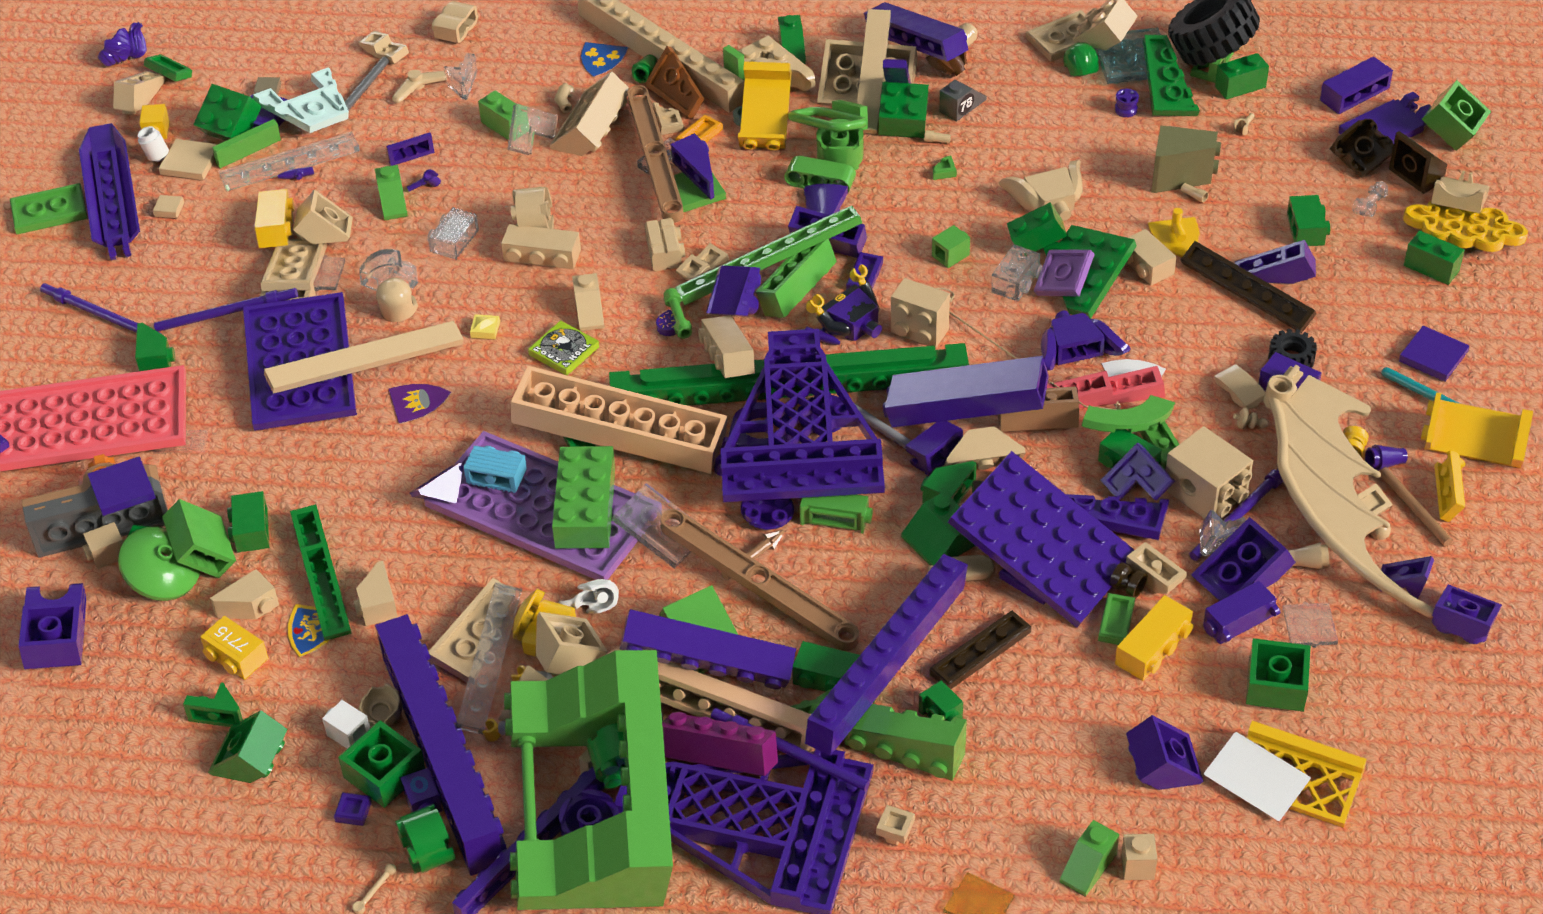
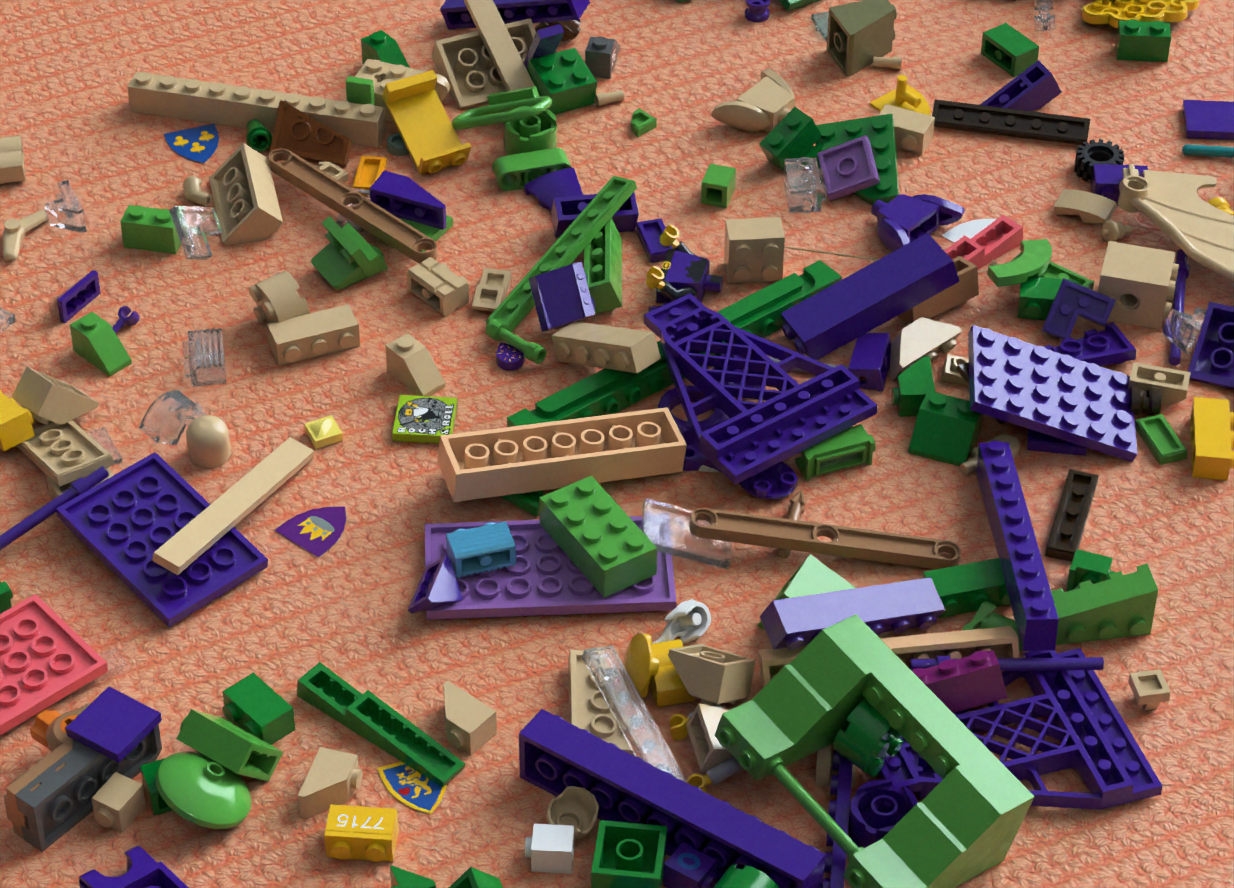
camera: 35 degrees left, 5 degrees down
(620, 192) = (347, 256): none -> bright green piece

